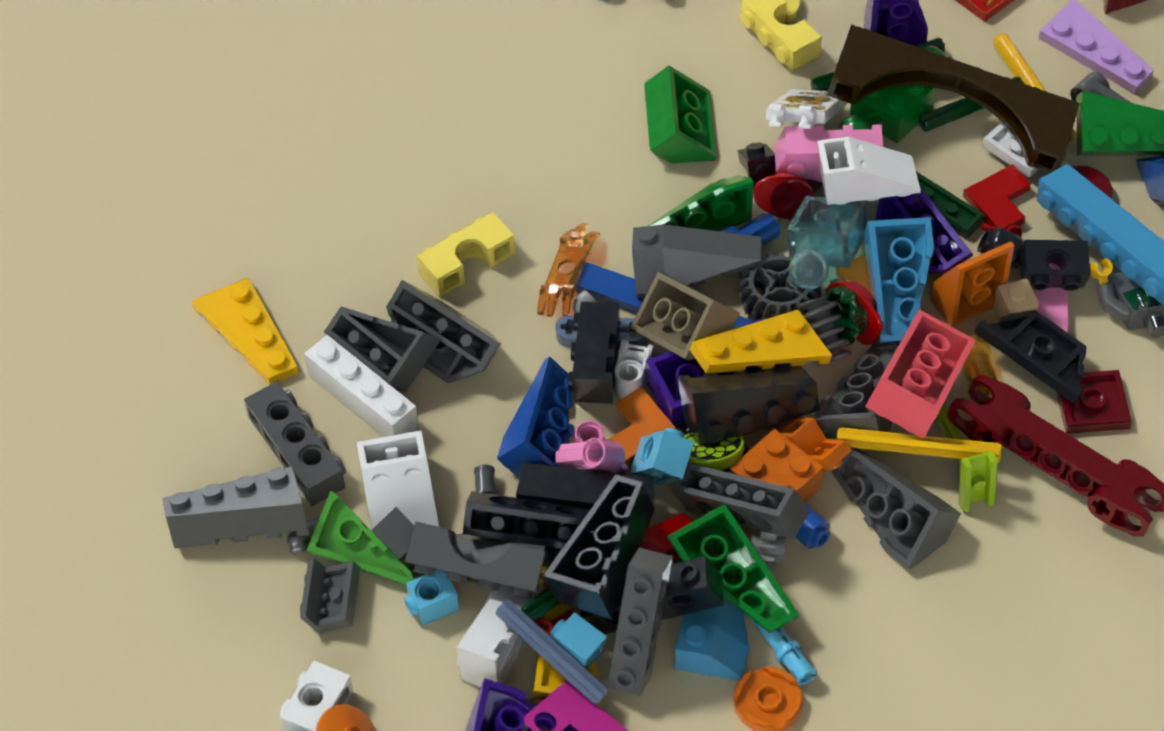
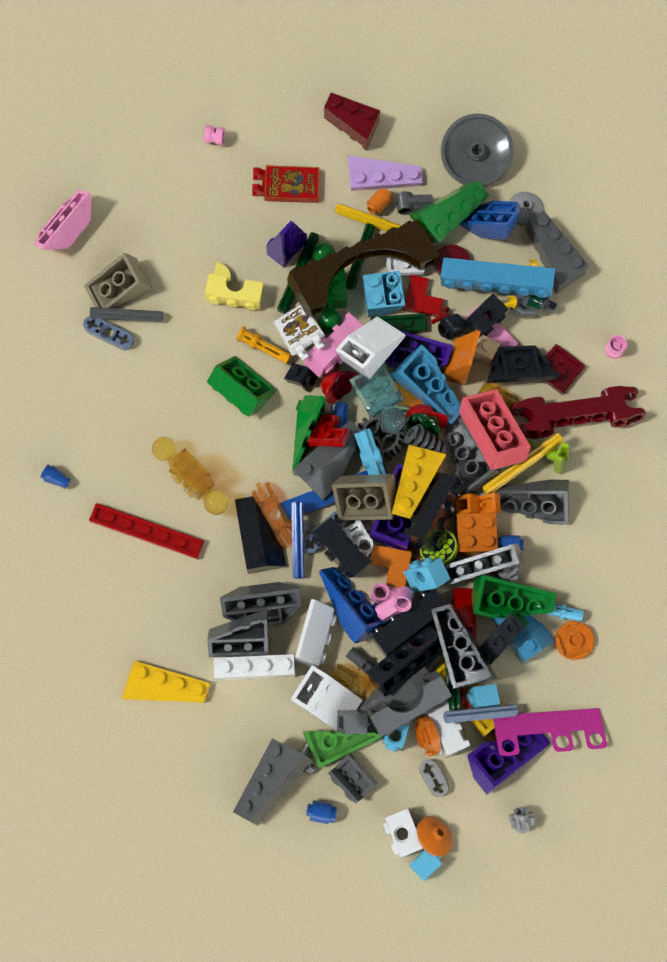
camera: 50 degrees left, 20 degrees up
(255, 598) = (321, 812): none -> blue brick
(314, 481) = (282, 733): dark grey brick -> none
(379, 45) = (54, 476): none -> blue cone
(411, 174) = (146, 531): none -> red tile
(427, 687) = (437, 775): none -> light grey beam
(449, 496) = (355, 682): none -> clear yellow piece
(462, 623) = (427, 736): none -> orange tile
(463, 409) = (315, 634): none -> white slope
(483, 239) = (222, 534): light yellow arch -> none
(511, 280) = (259, 542): none -> black wedge
(517, 151) = (190, 474): none -> clear yellow brick
(559, 308) = (297, 540): none -> axle
(639, 621) = (508, 666): dark grey brick -> none
(717, 224) = (327, 434): none -> red tile
(741, 287) = (370, 453): none -> medium azure piece
(746, 82) = (254, 341): none -> light orange pin
(951, 150) = (382, 293): none -> medium azure slope
(1058, 66) = (379, 201): none -> orange brick

